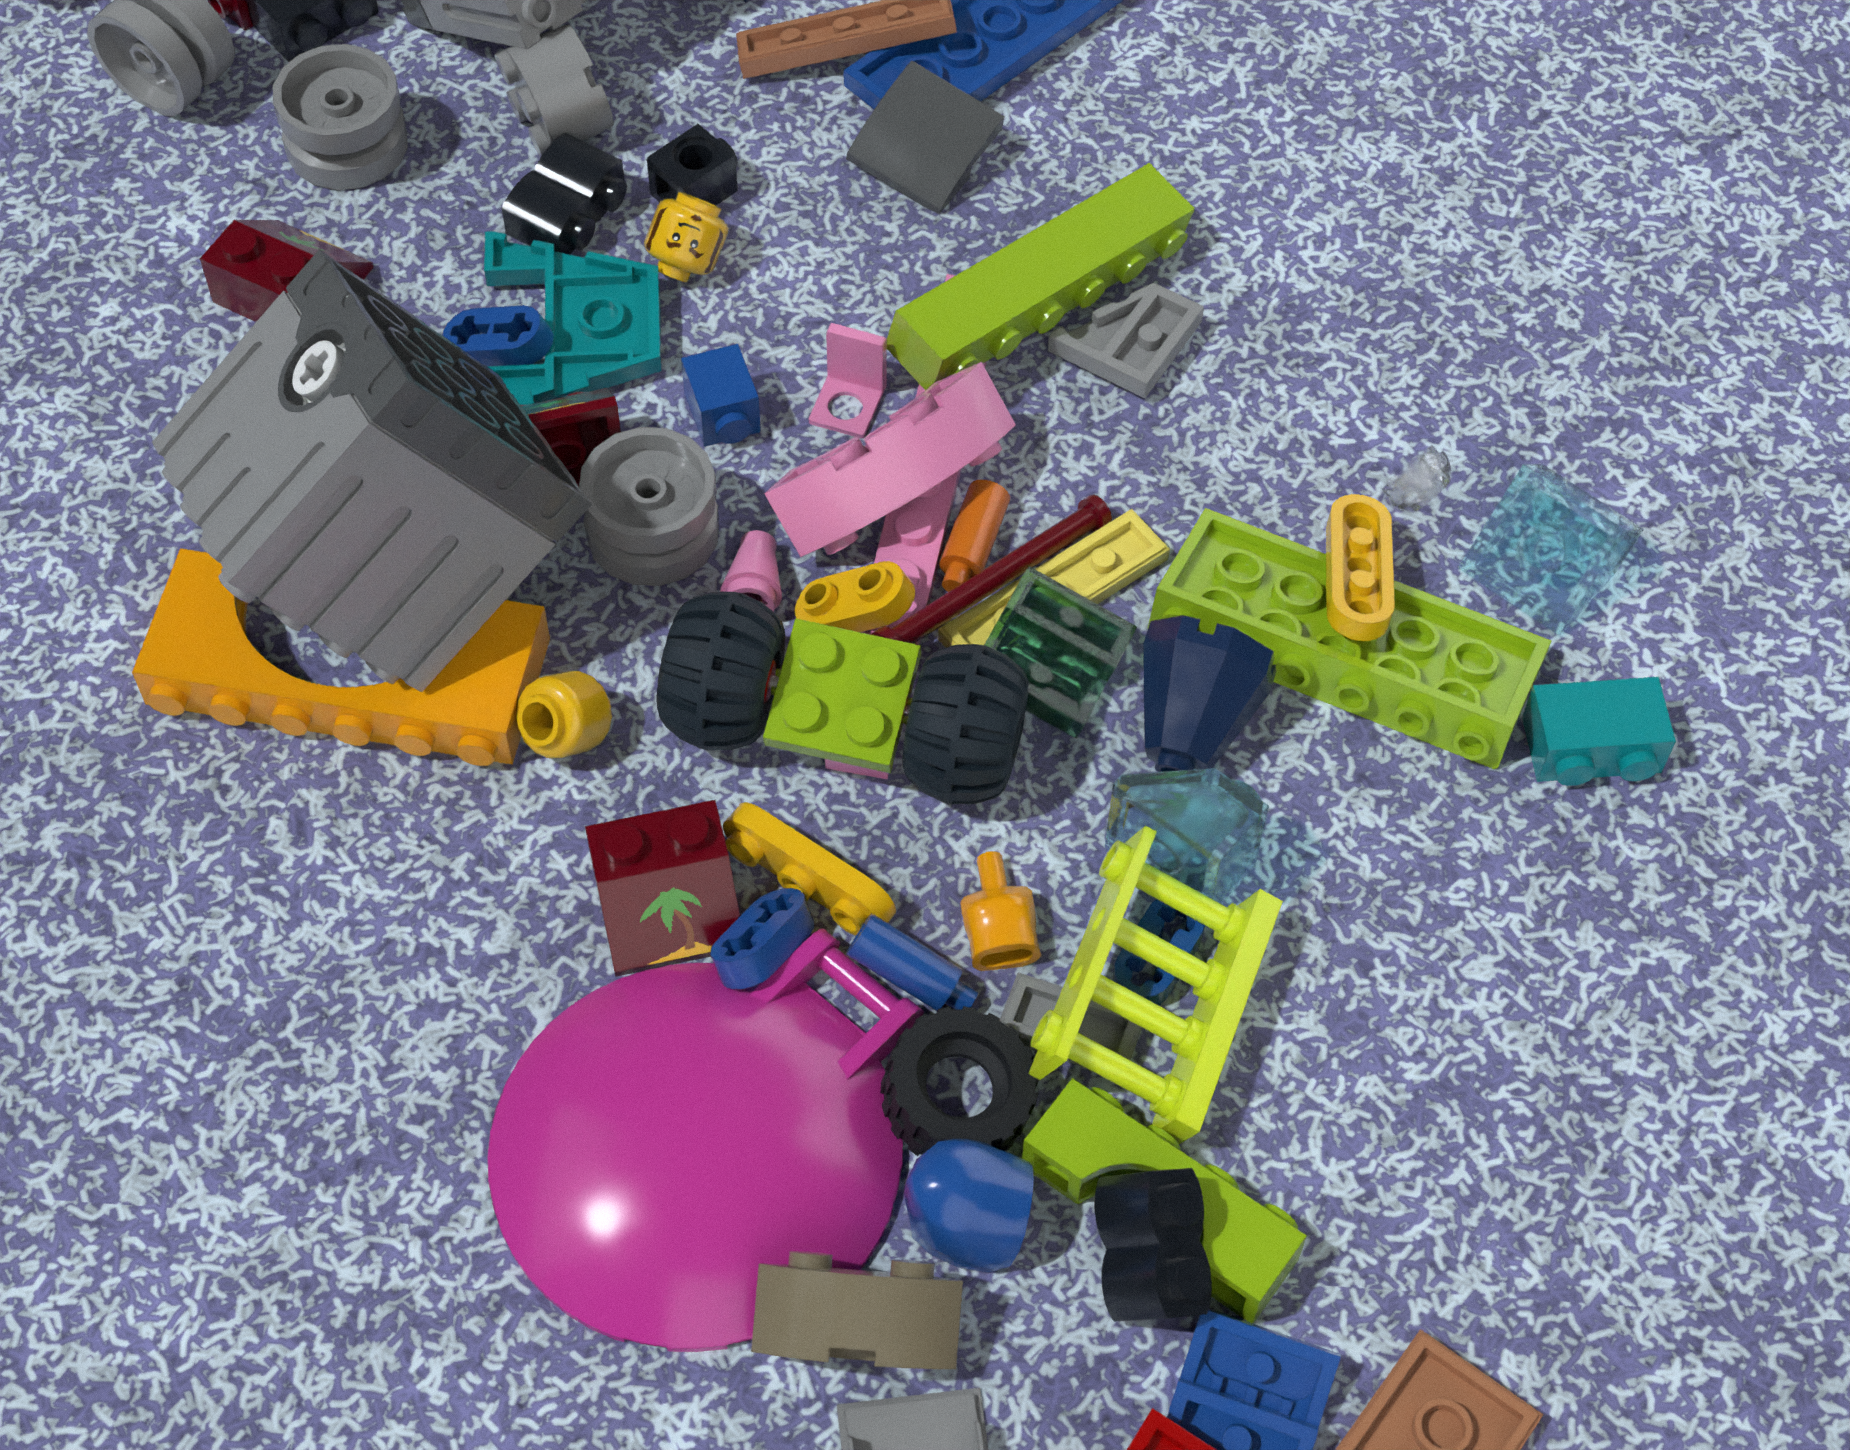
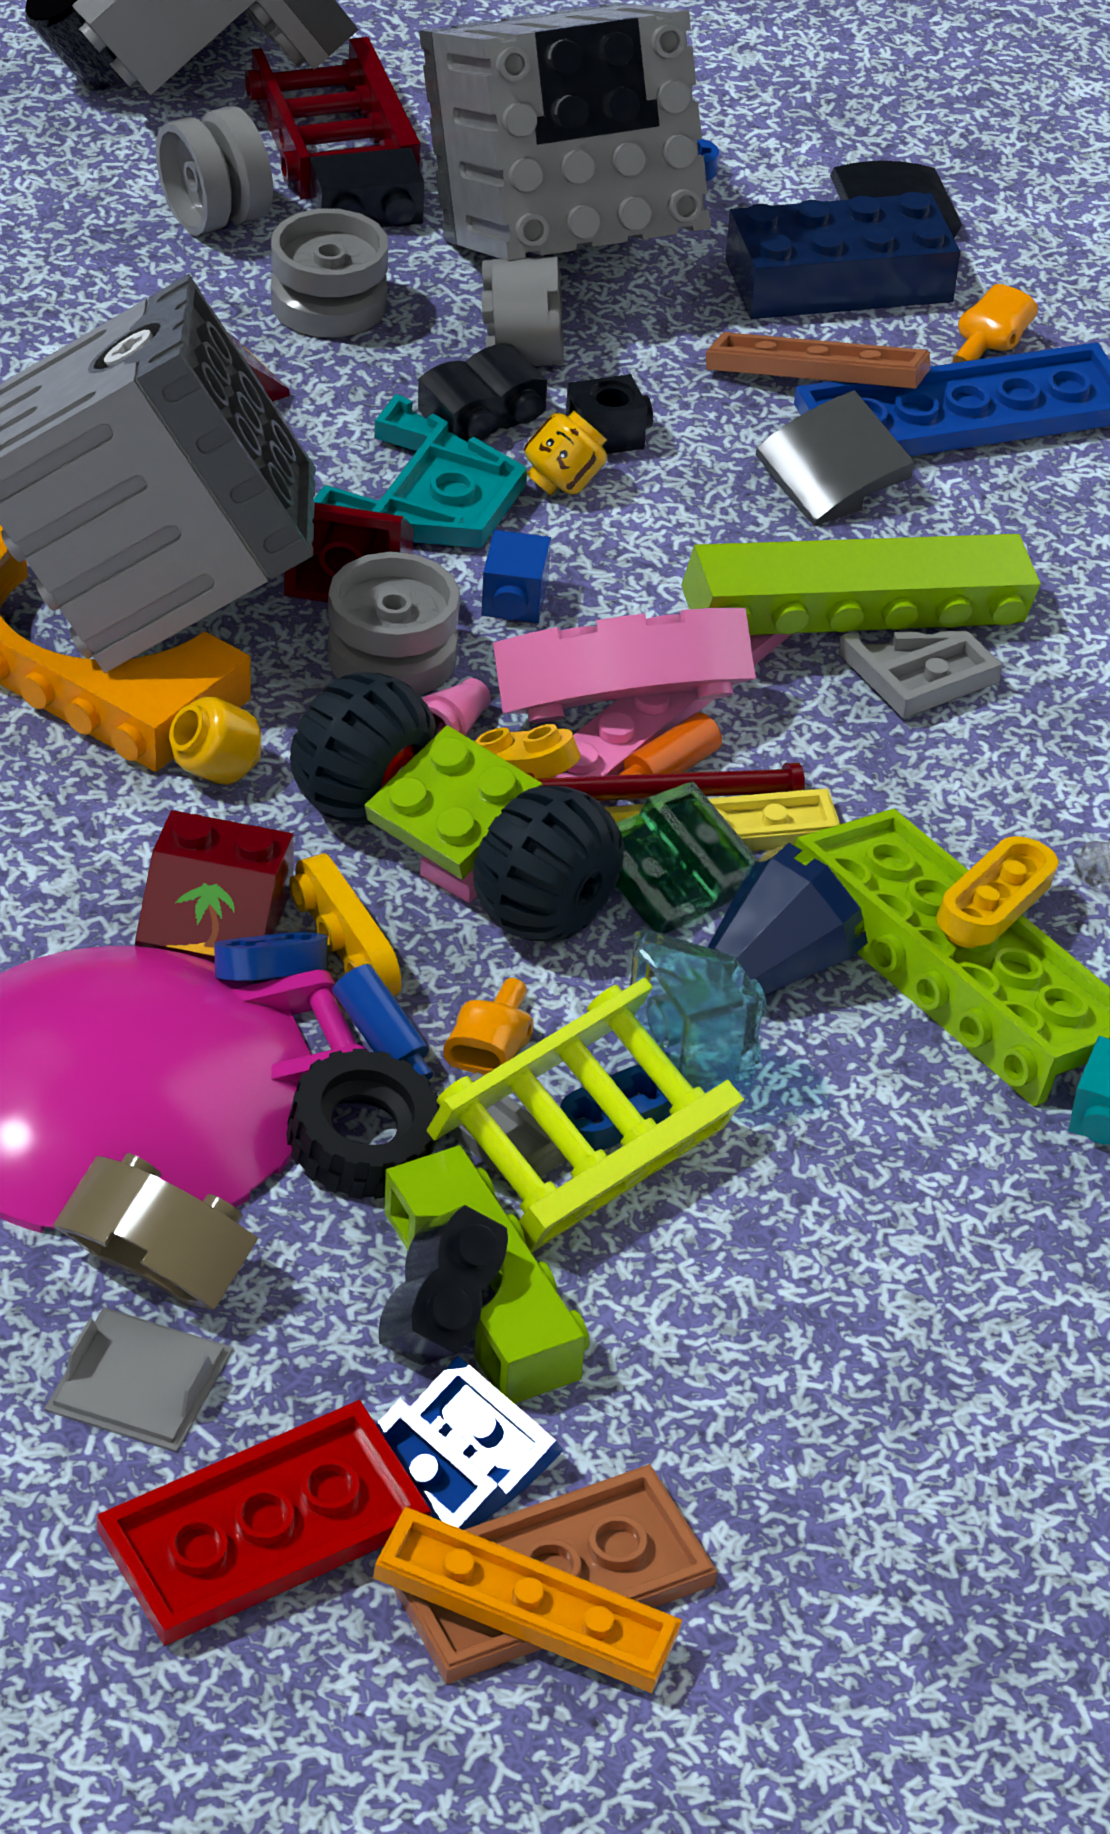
camera: 25 degrees right, 15 degrees down
(499, 330) = (356, 468): blue beam -> none
(854, 369) = (650, 586): bright pink bracket -> none
(969, 1204) = (305, 1194): blue piece -> none

